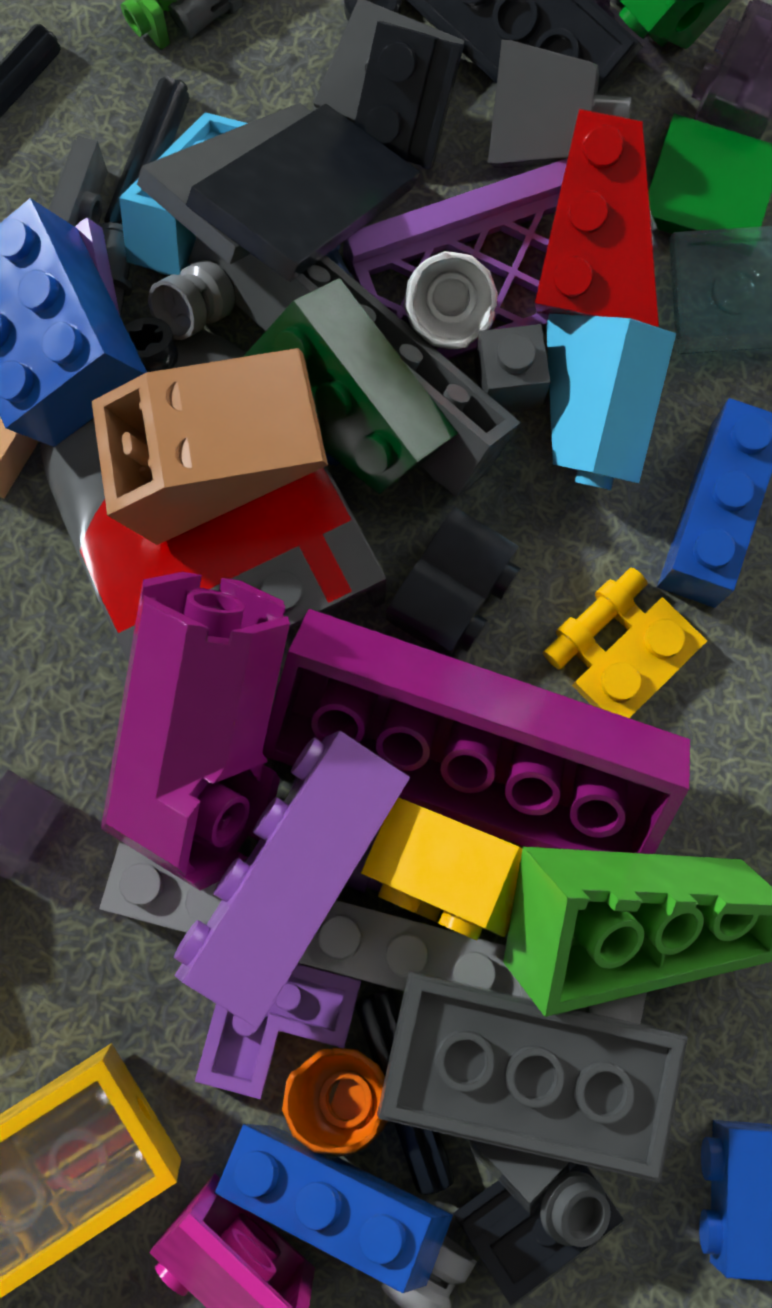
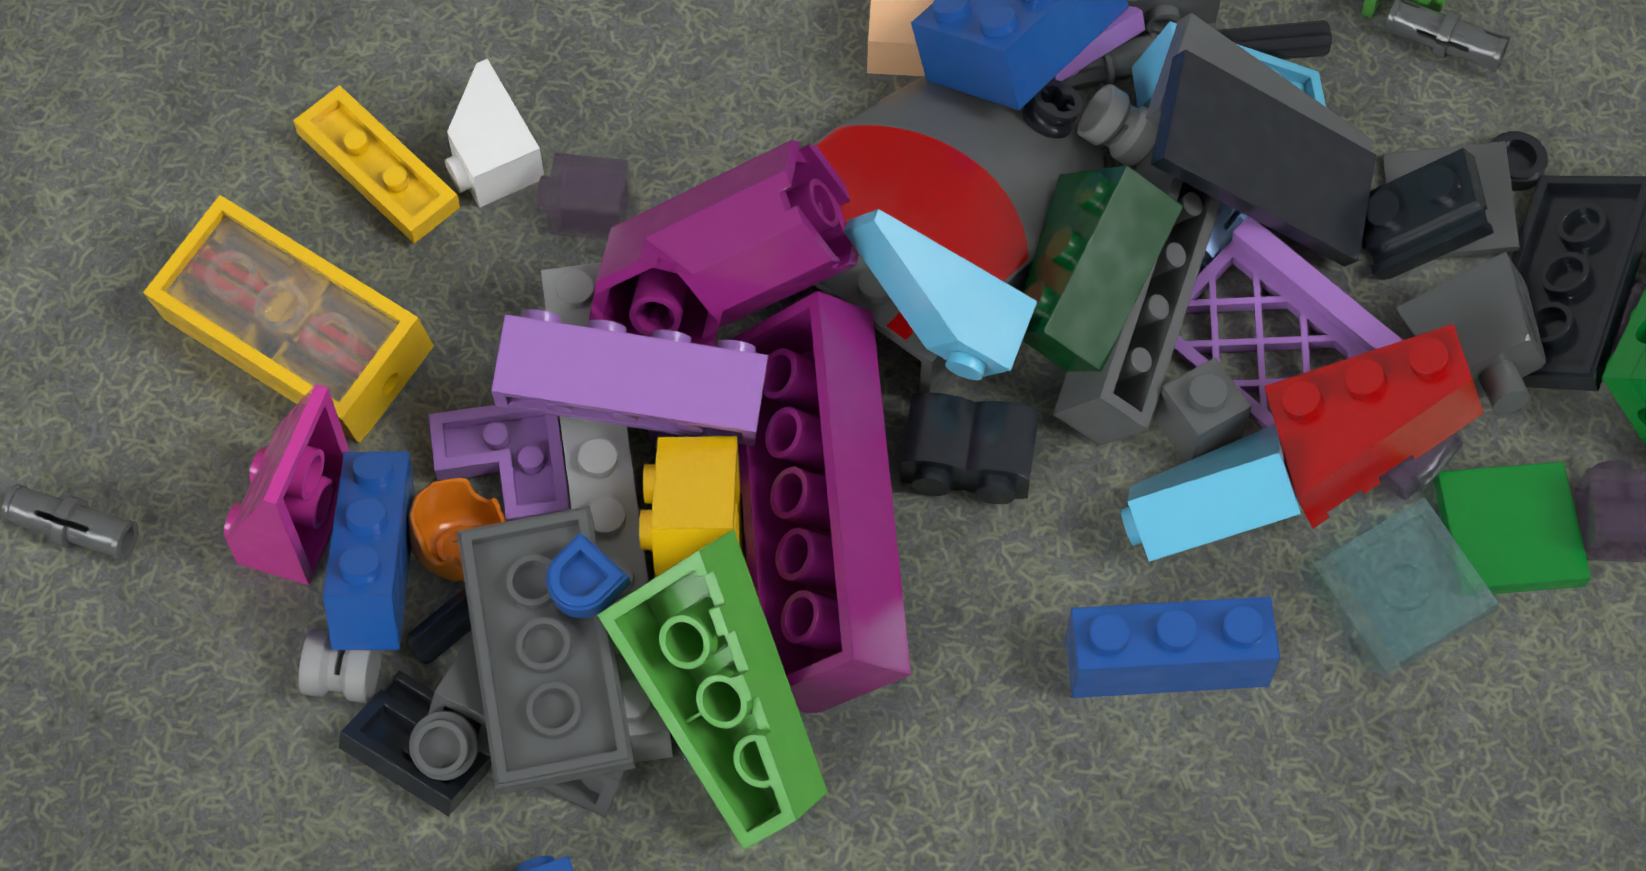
camera: 70 degrees right, 15 degrees down
(205, 440) = (968, 155): medium nougat slope -> none
(349, 535) = (943, 297): none -> medium azure slope
(450, 300) = (1233, 323): white hair -> none
(495, 1012) = (584, 579): none -> blue tile
(639, 660) = (981, 642): yellow plate -> none

